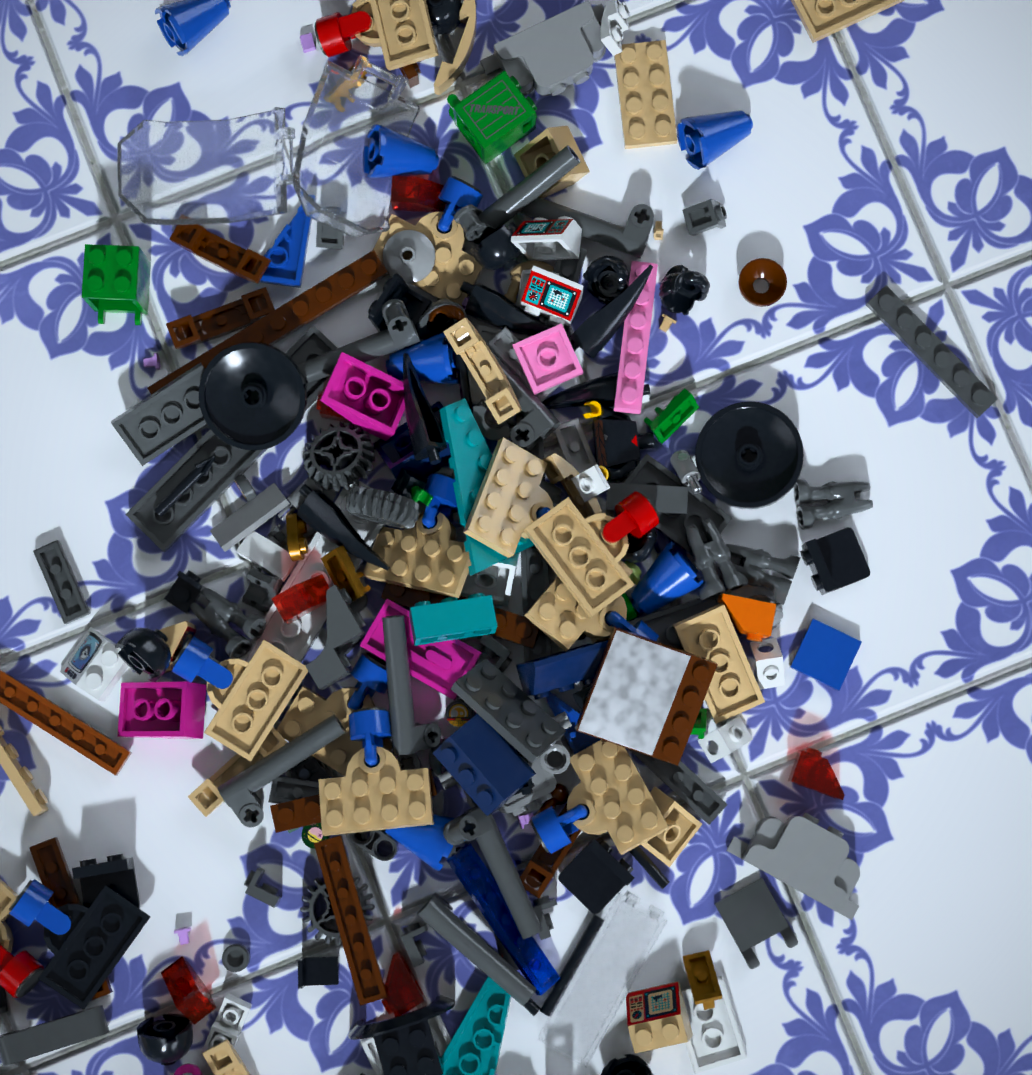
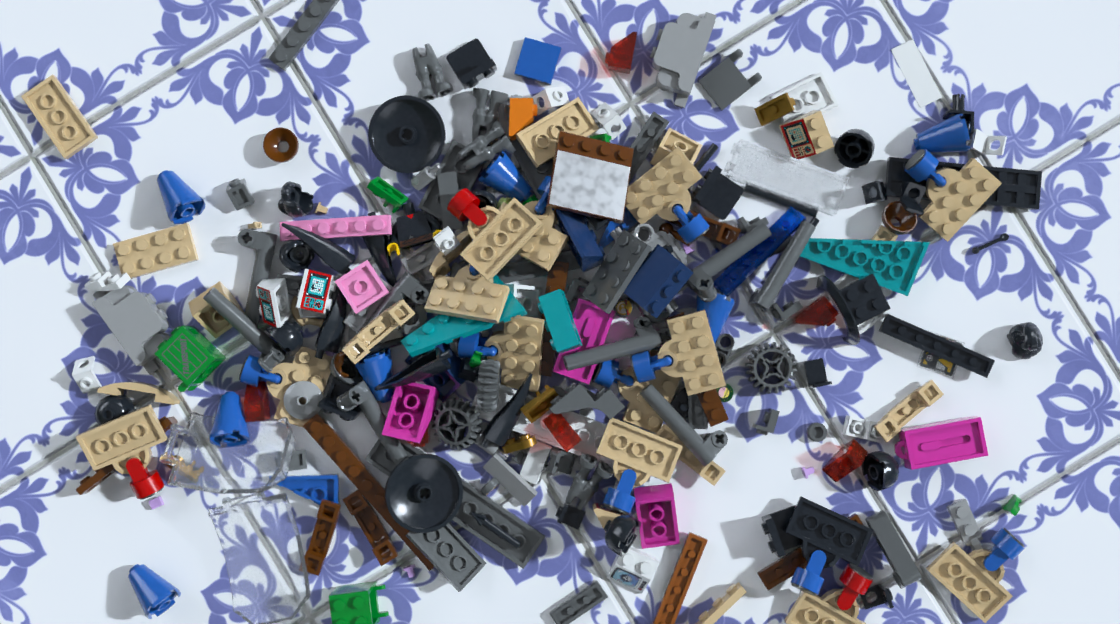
camera: 100 degrees left, 5 degrees up
(350, 920) = (779, 356): reddish brown plate -> none

